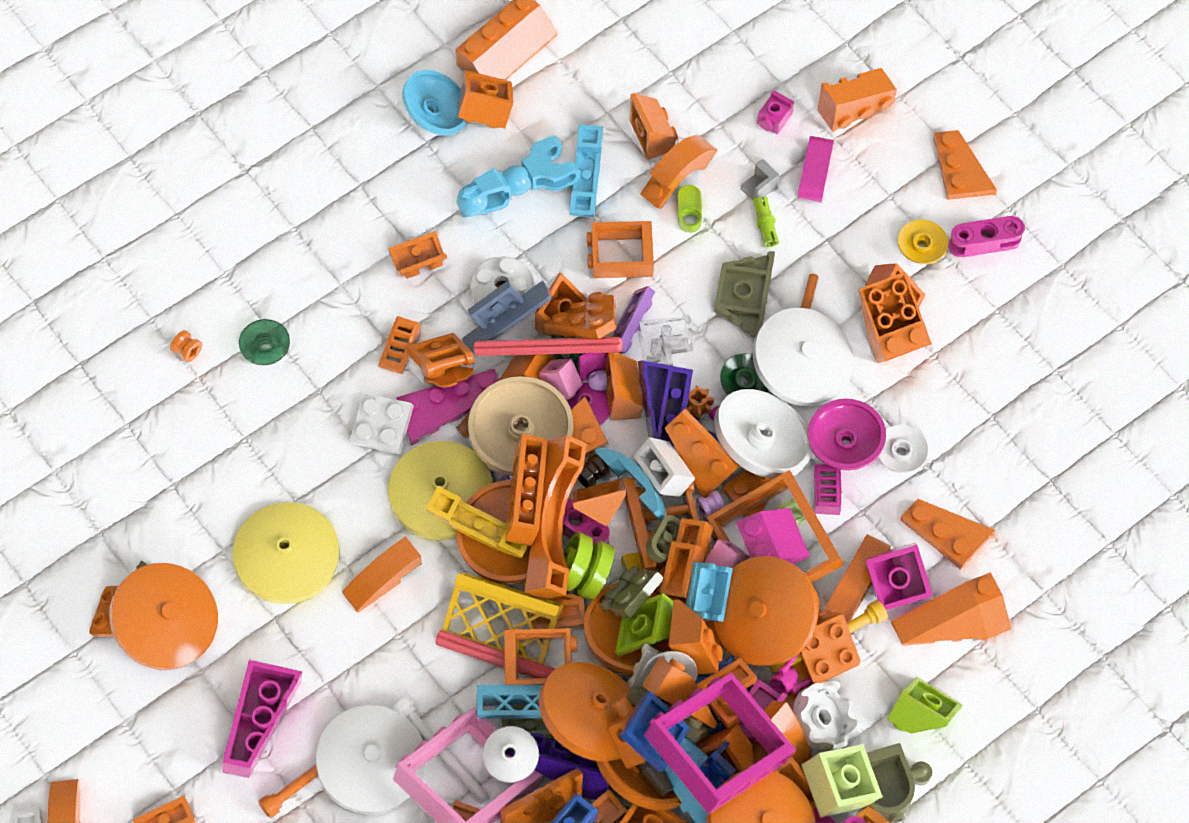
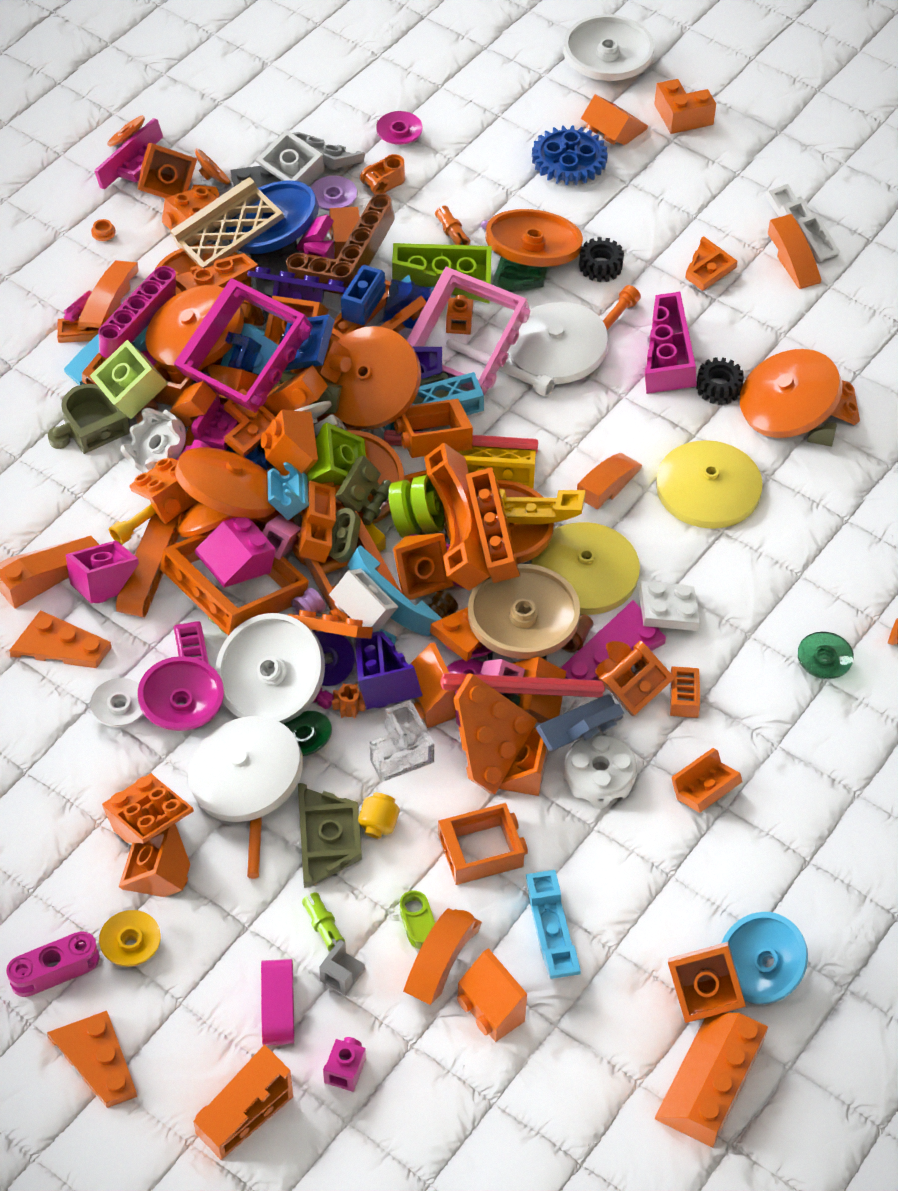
camera: 165 degrees right, 10 degrees down
(218, 652) = (721, 370): none -> black tyre
(494, 189) = (628, 889): medium azure piece -> none
(513, 768) = (433, 342): white dish -> none
(634, 312) = (446, 767): medium lavender plate -> none
(699, 292) = (378, 815): none -> yellow head
(923, 708) = (60, 479): lime slope -> none

